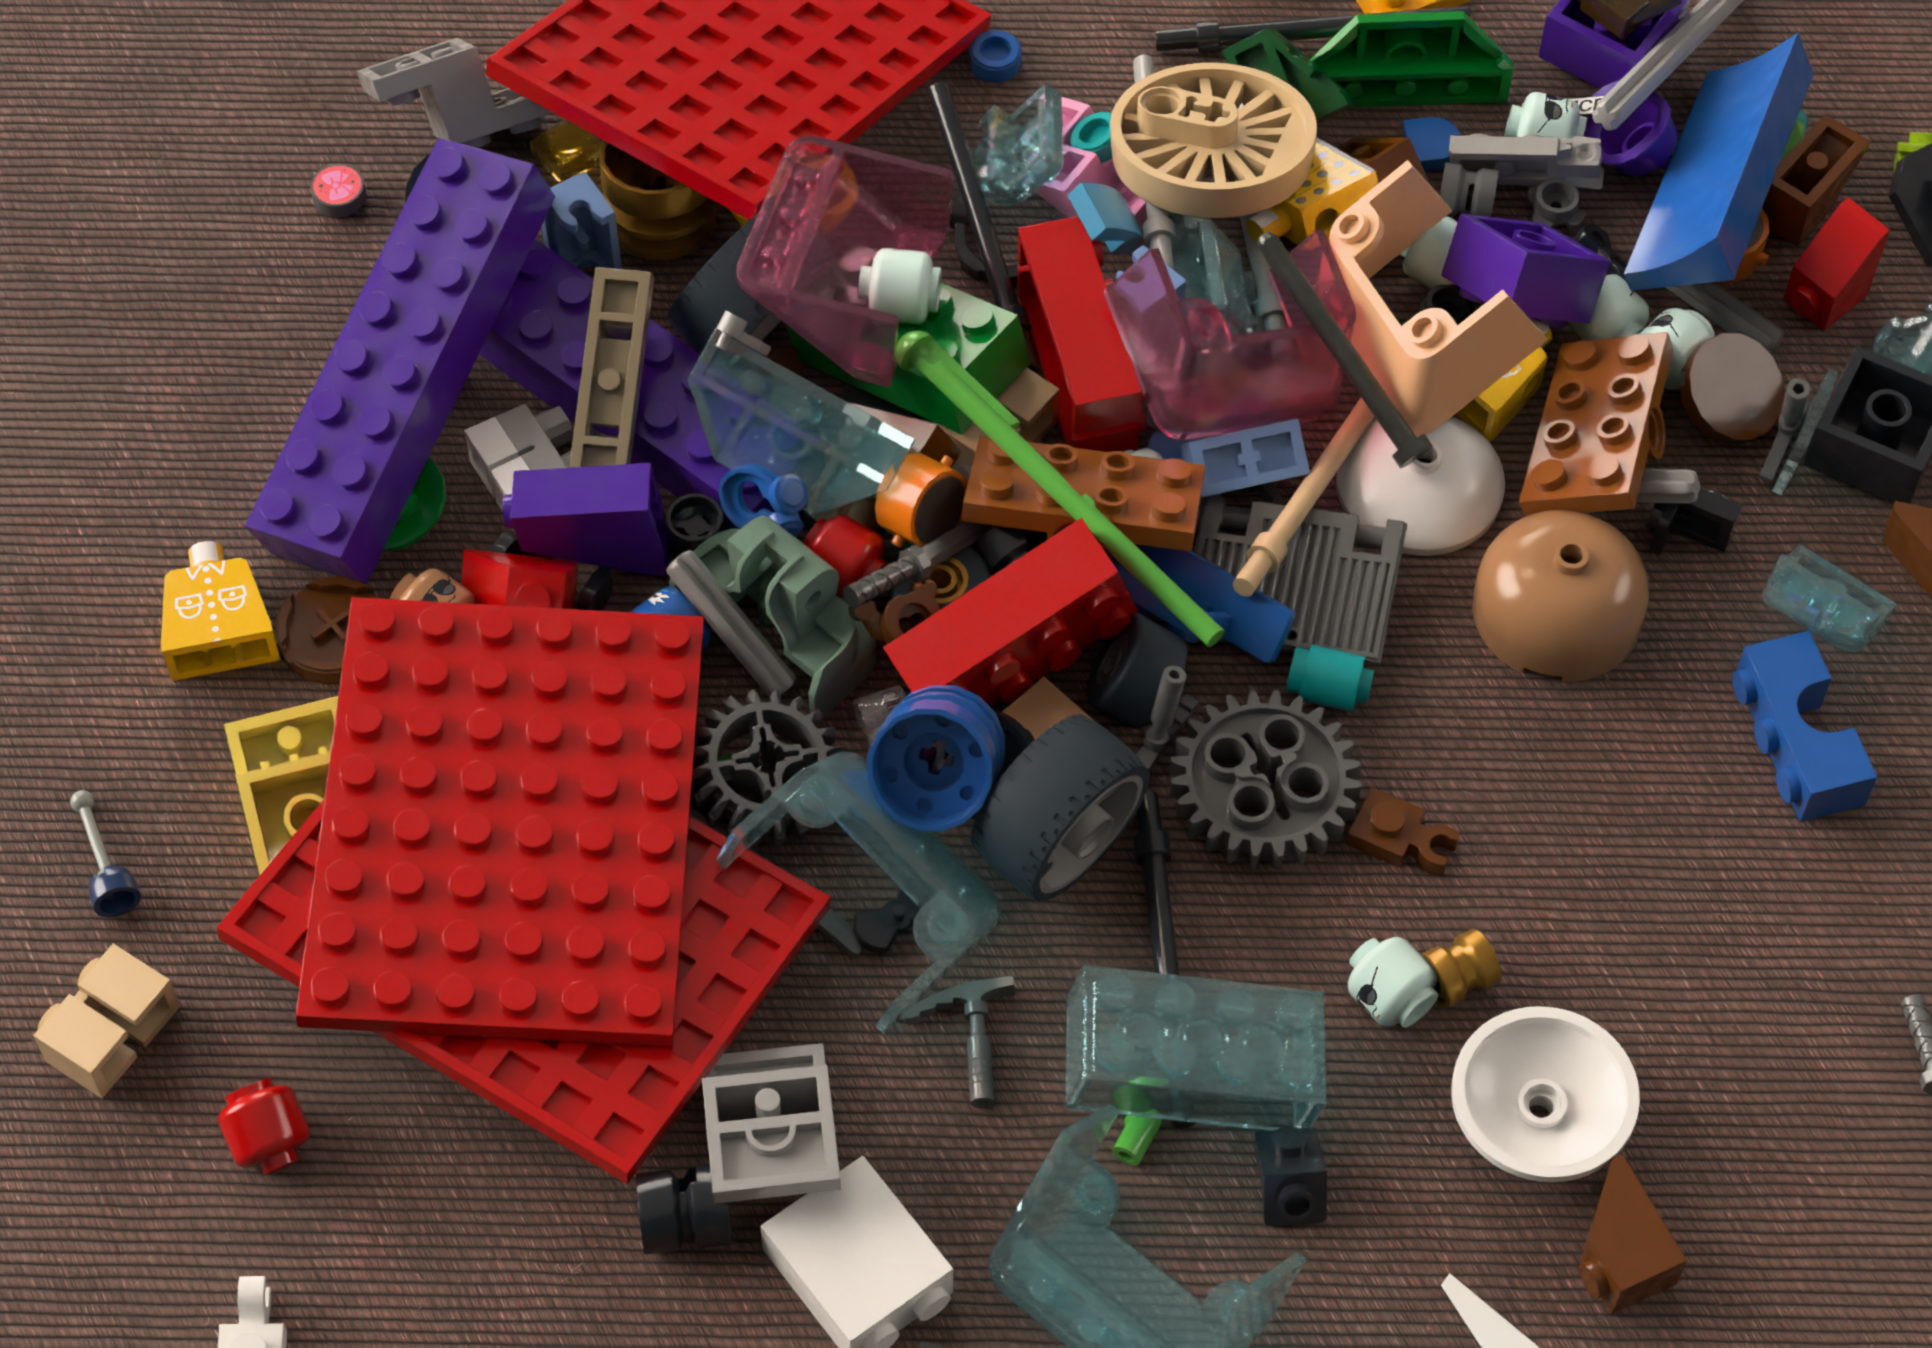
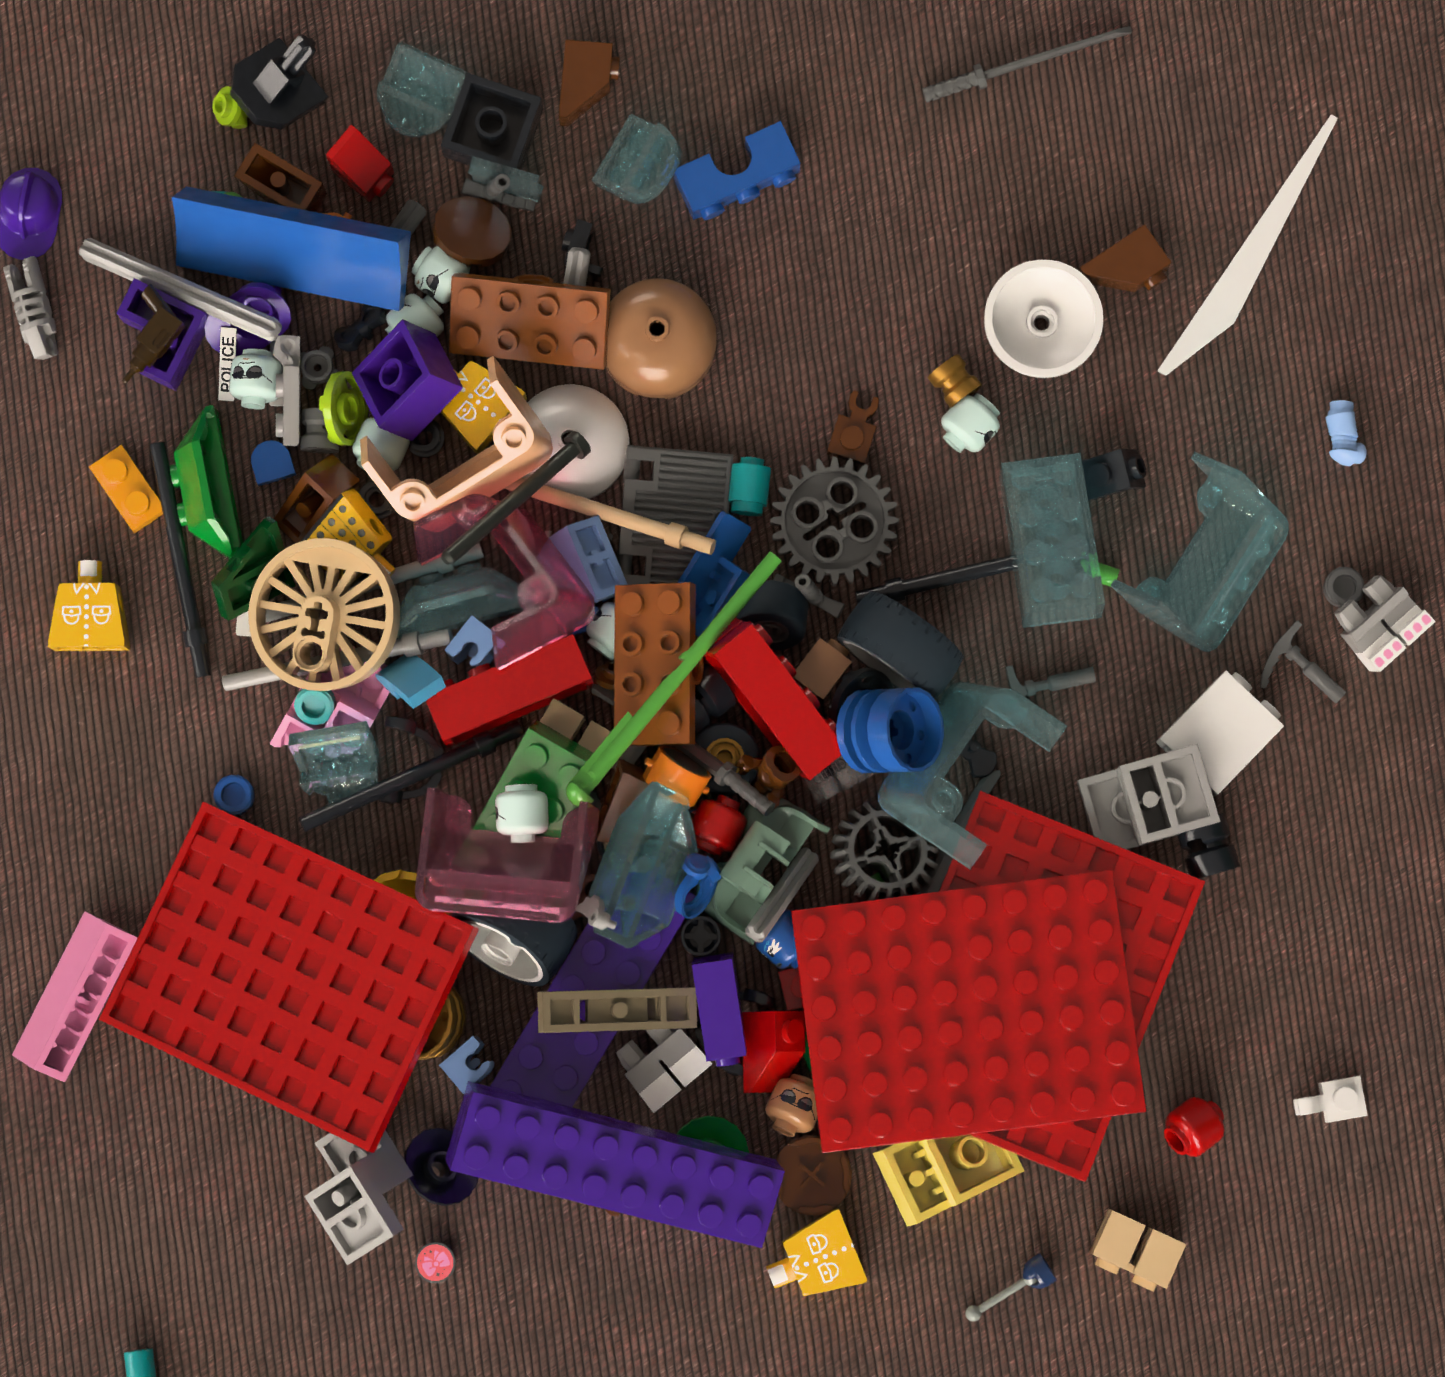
camera: 100 degrees left, 25 degrees up
(1497, 195) = (343, 408): none -> lime wheel

